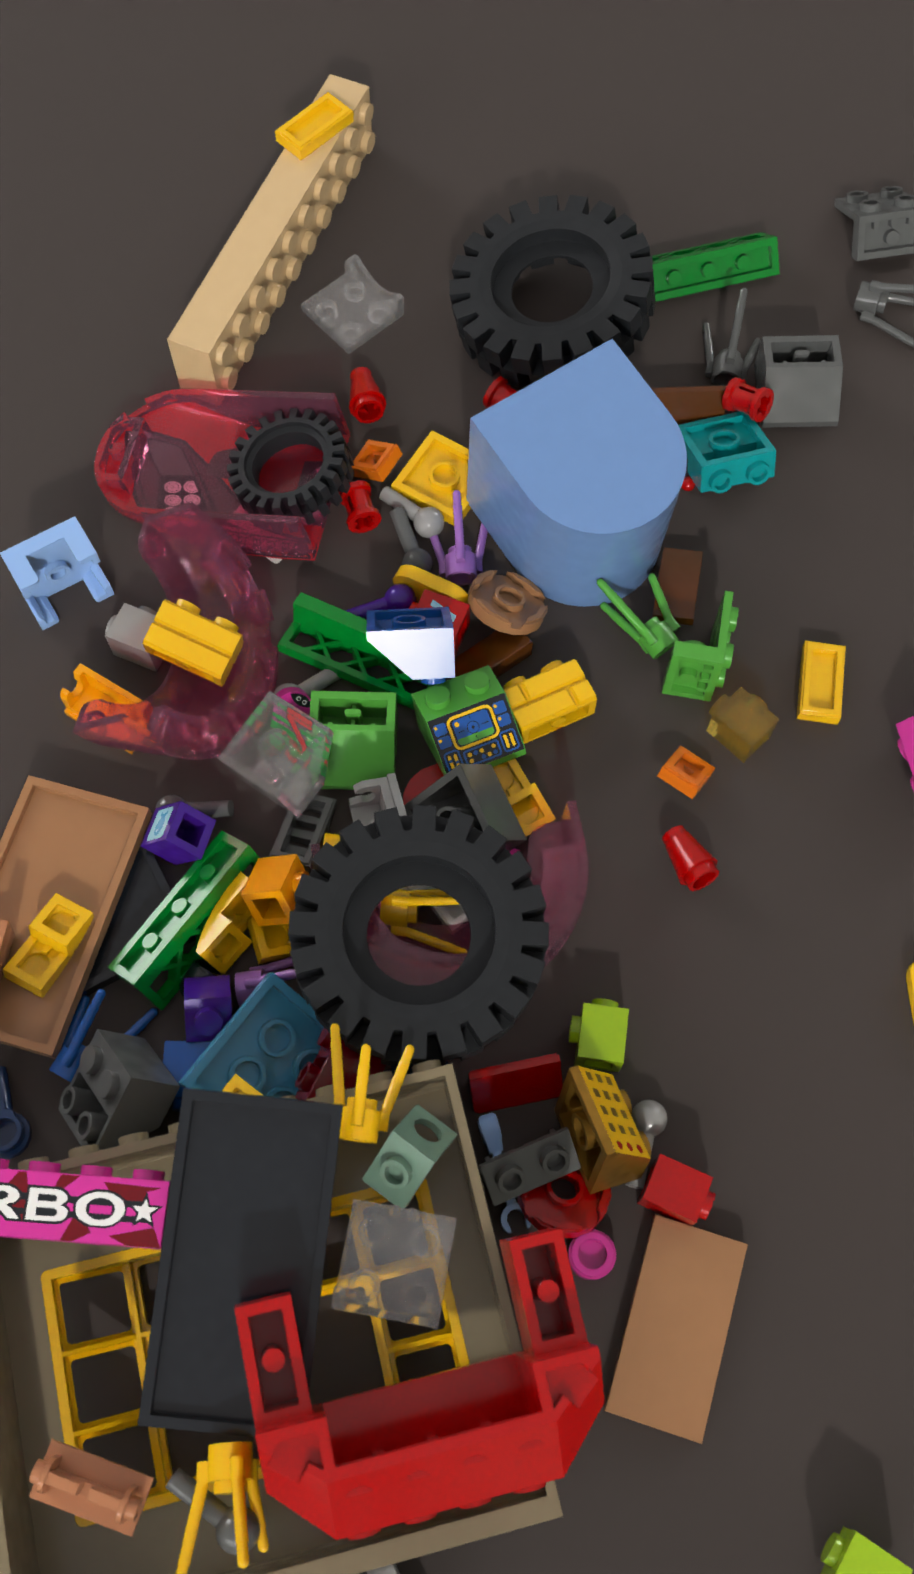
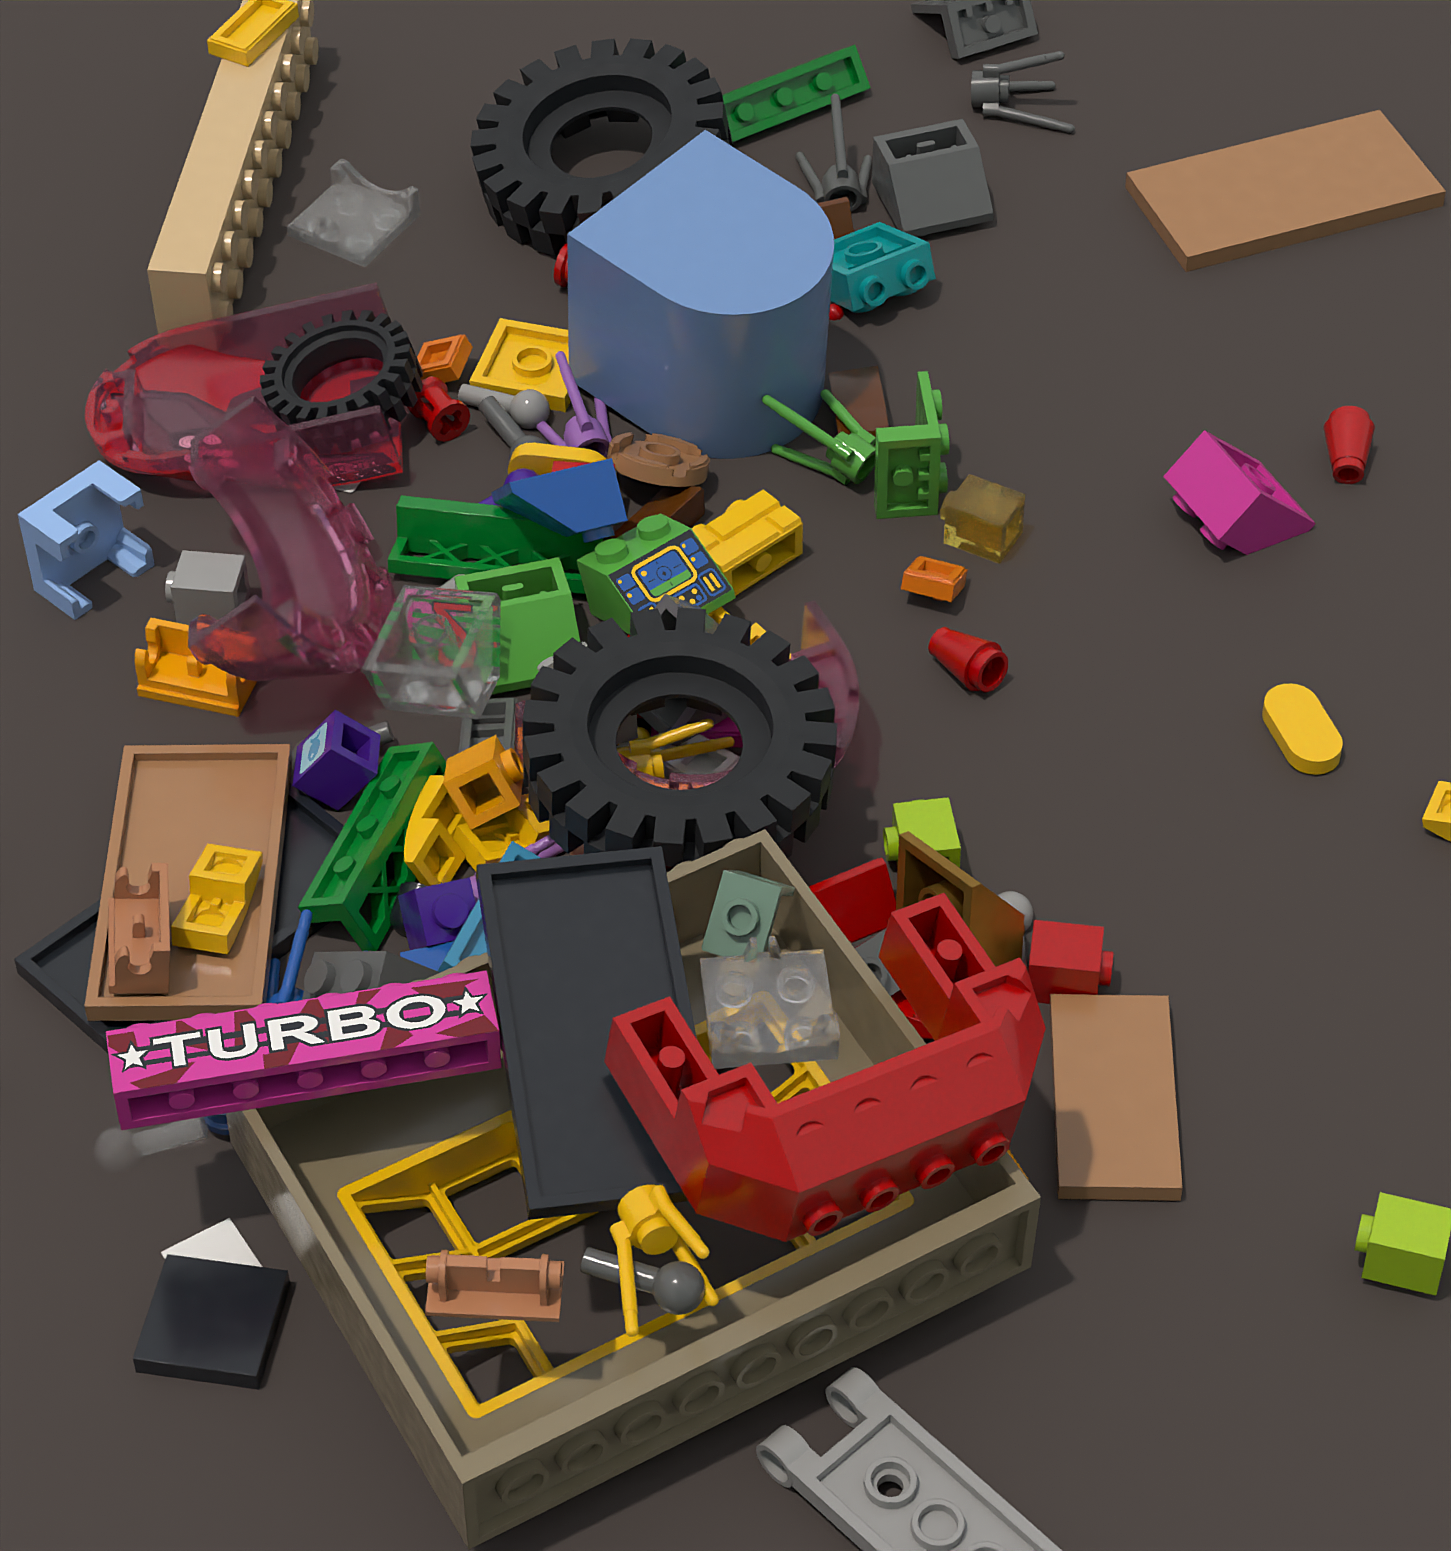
camera: 15 degrees left, 20 degrees down
(194, 641) = (291, 559): yellow brick -> none
(360, 1115) = (689, 887): yellow plant -> none
(366, 398) = (405, 301): red cone -> none
(748, 399) = (877, 205): red bush -> none
(821, 682) = (1063, 465): yellow tile -> none

